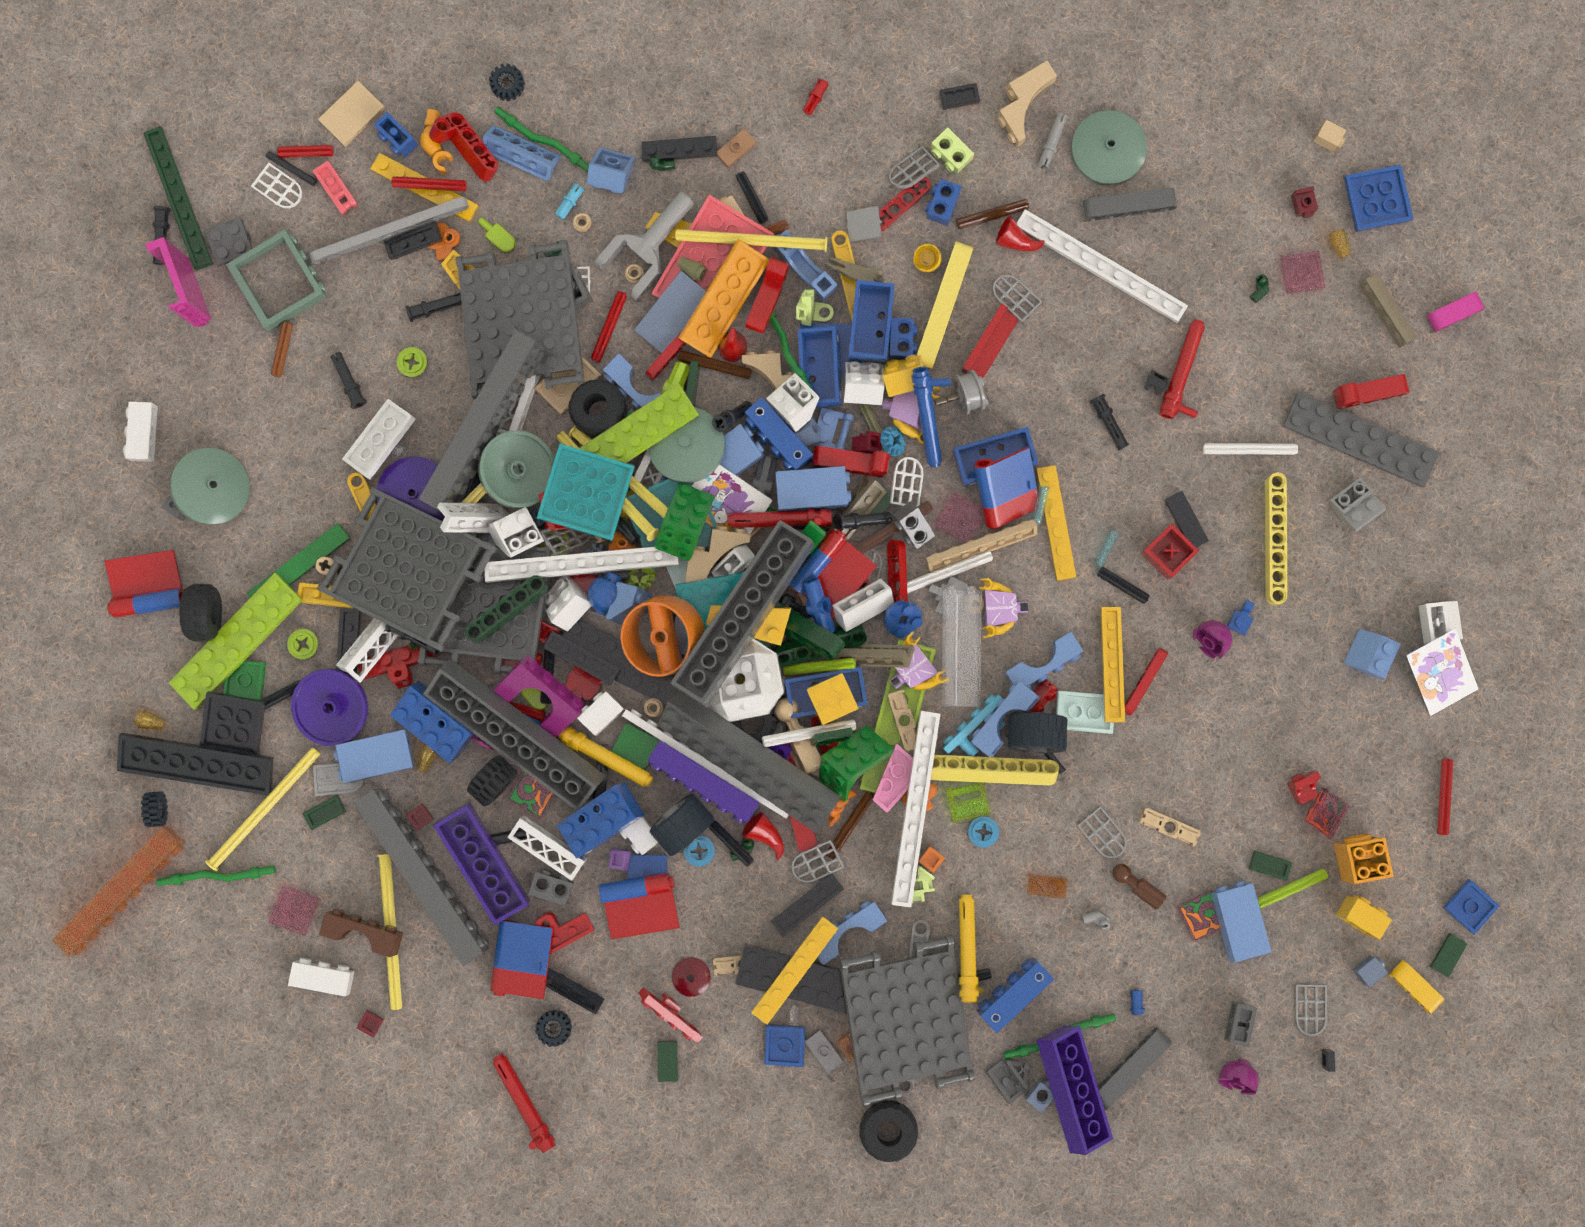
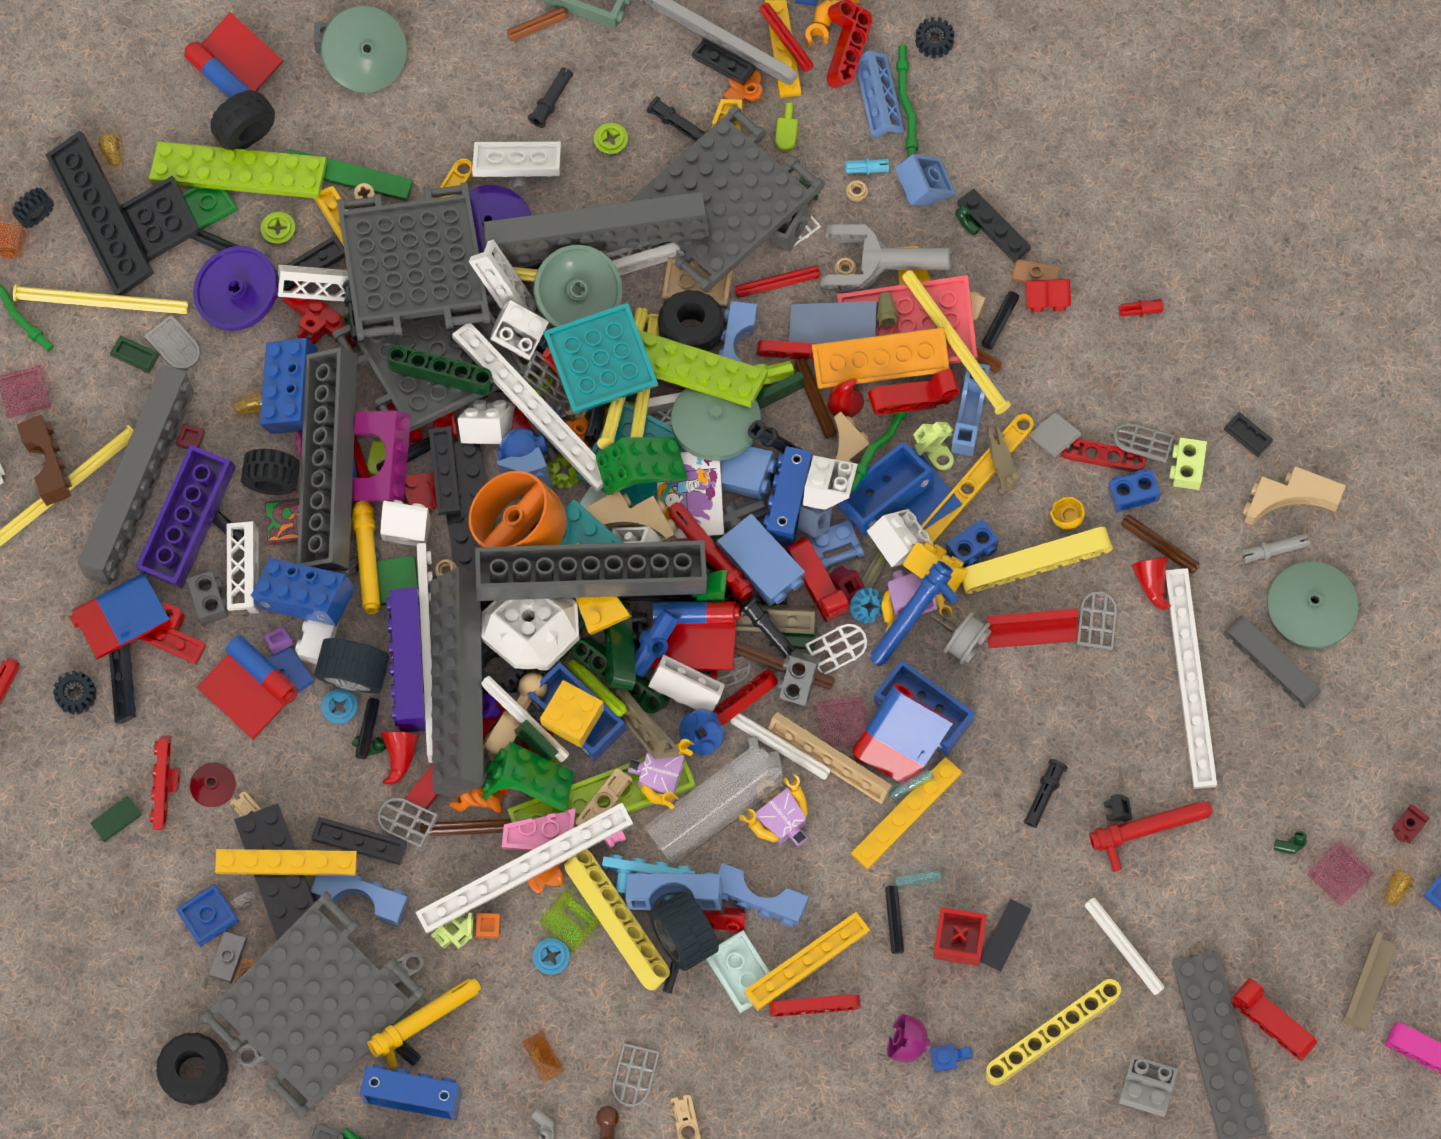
camera: 55 degrees right, 15 degrees down
(374, 756) = (218, 359): medium blue brick -> none
(759, 150) = (1048, 293): none -> brick
(869, 302) = (976, 488): blue piece -> none

